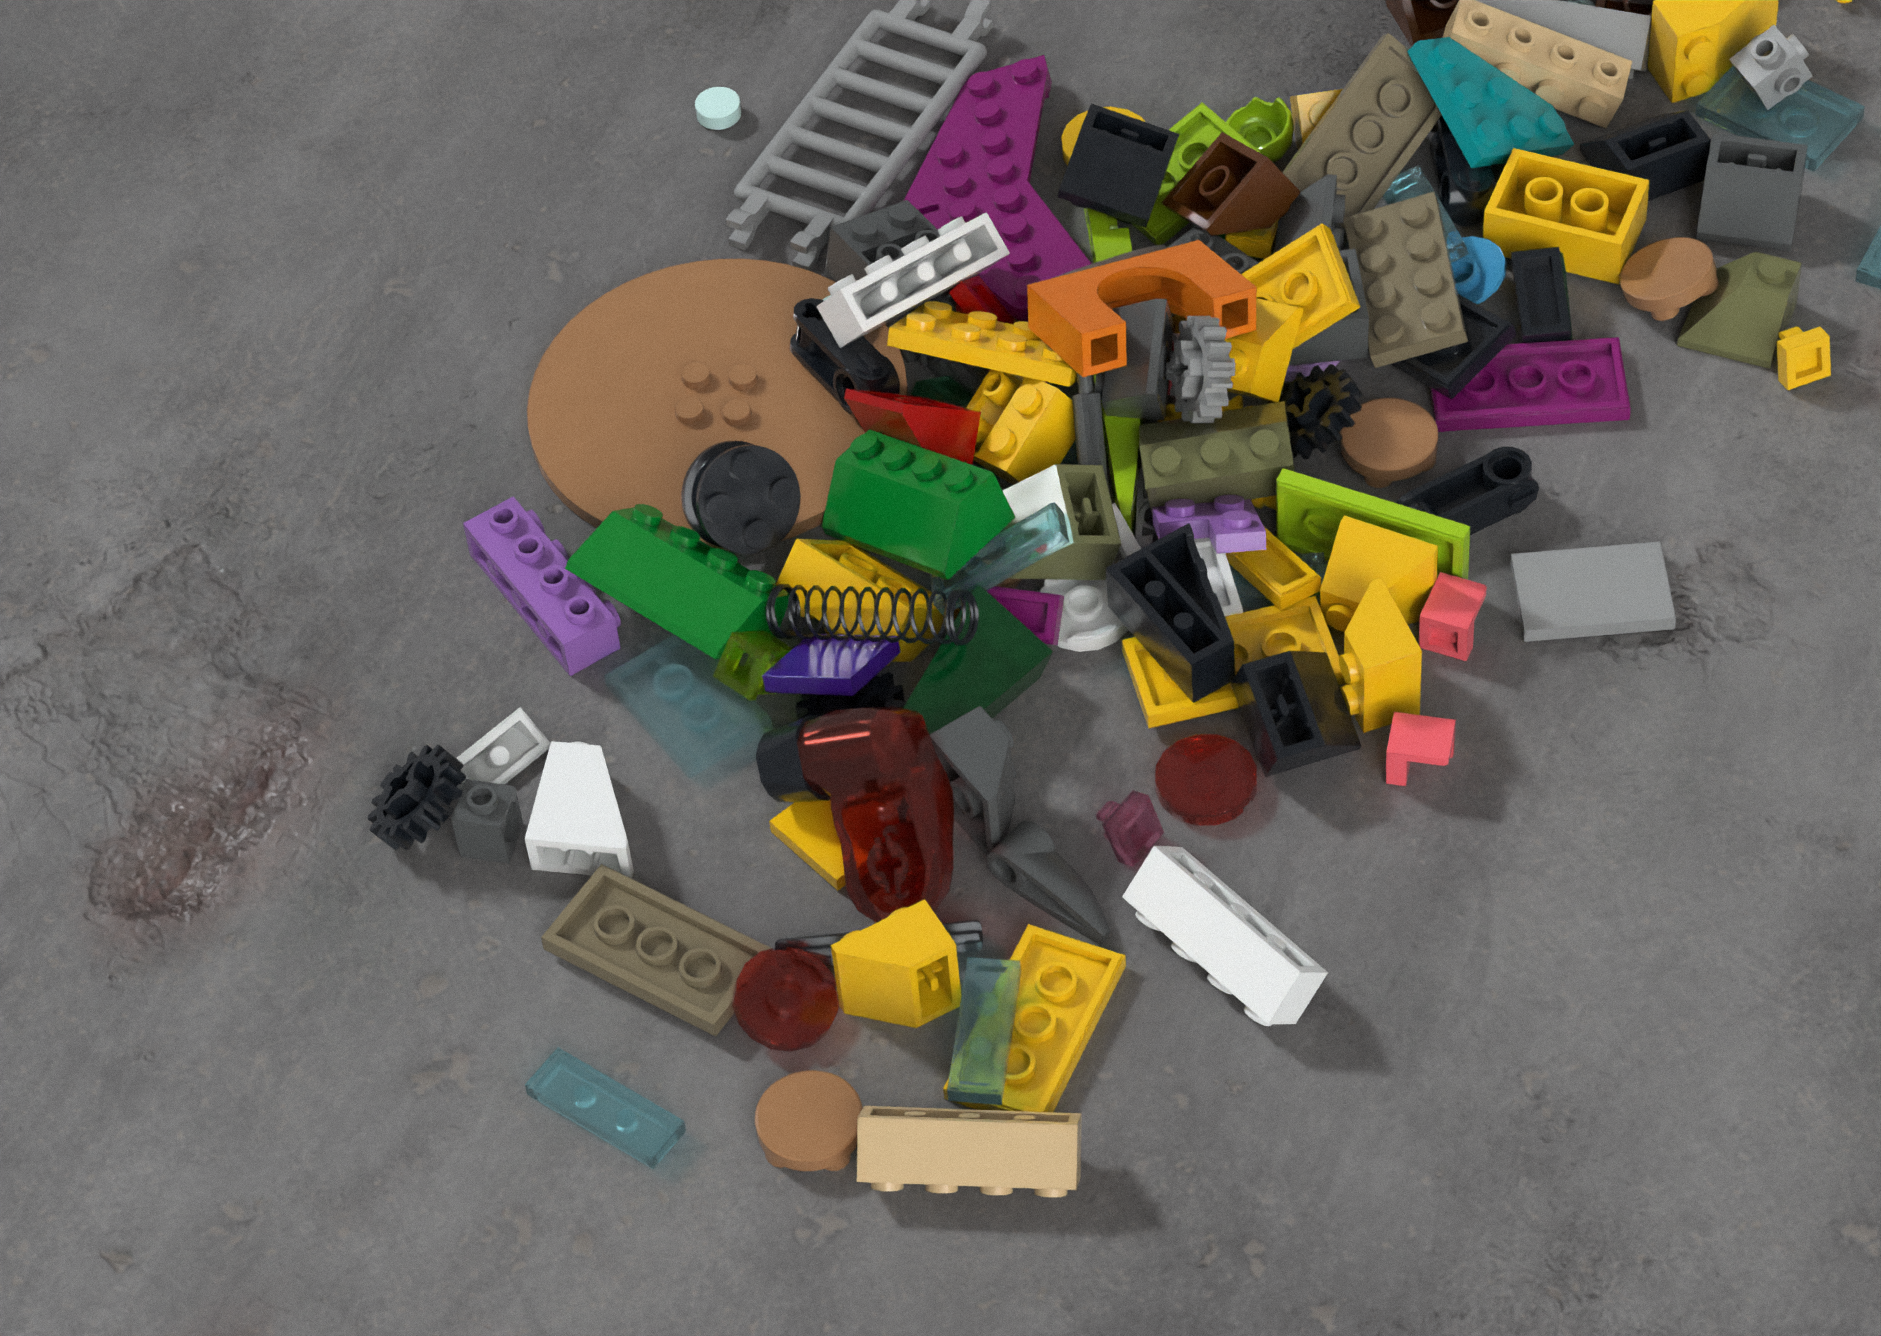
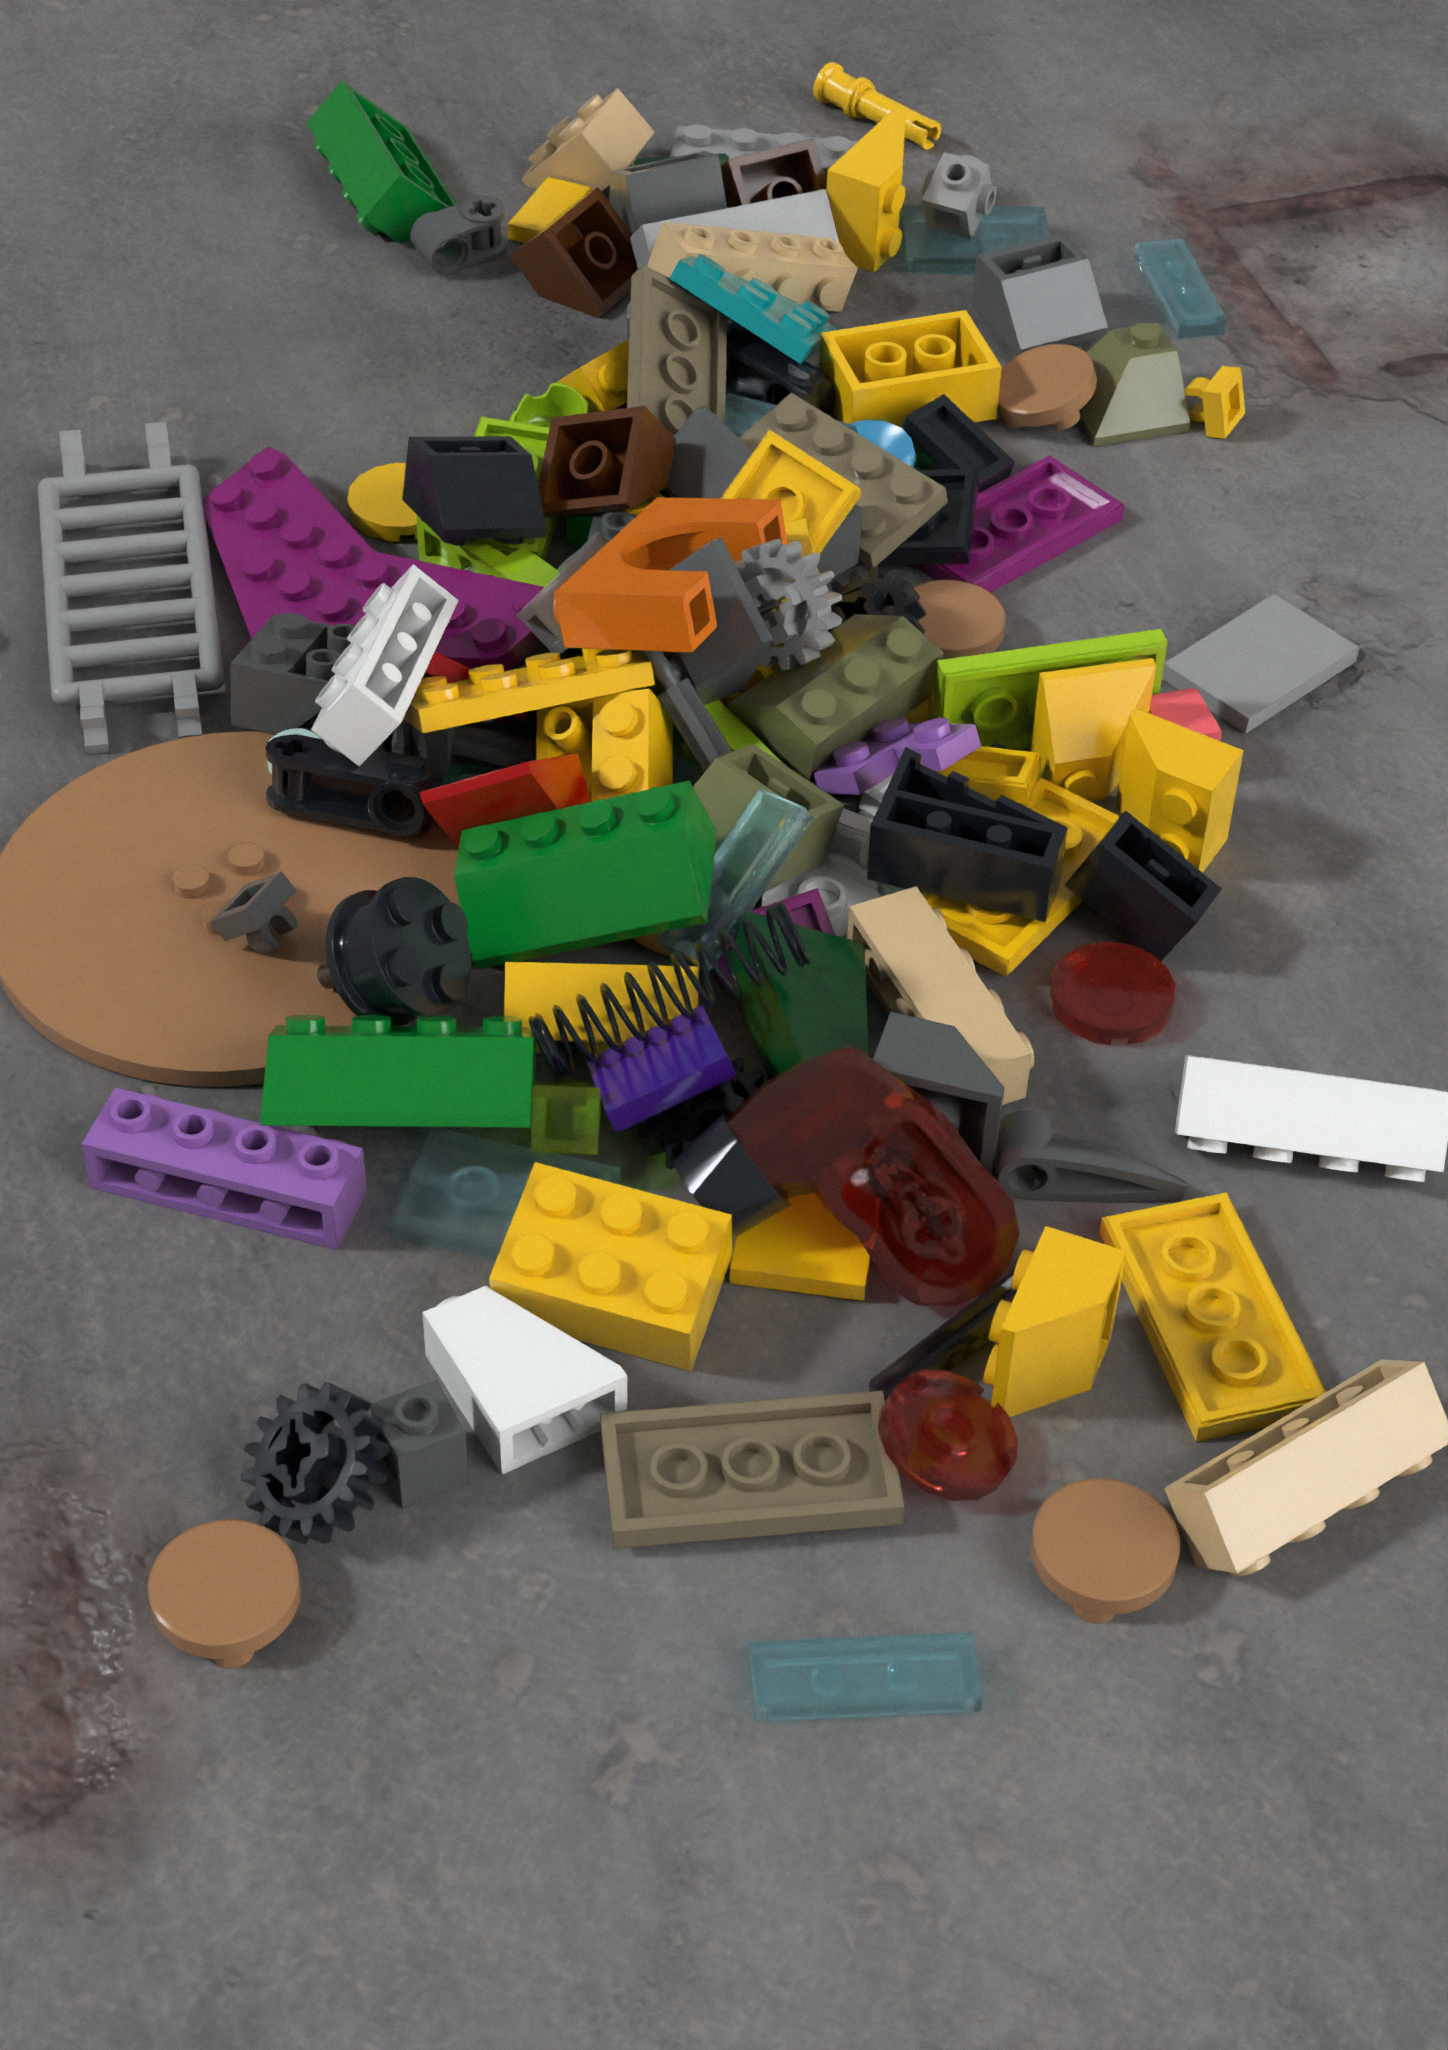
camera: 45 degrees left, 5 degrees down
(318, 843) = (224, 1590): none -> medium nougat tile
(504, 750) = (348, 1353): white slope -> none
(689, 777) = (615, 1264): none -> yellow brick
(699, 417) = (254, 909): none -> dark grey tile
(984, 1031) = (1191, 1346): clear light blue tile -> none
(1067, 719) = (925, 975): none -> tan brick
(1130, 827) = (1097, 1071): clear pink tile -> none
(1417, 740) = (1273, 852): coral panel -> none
(1479, 490) = (1088, 607): black piece -> none
(1662, 149) = (924, 287): black slope -> none

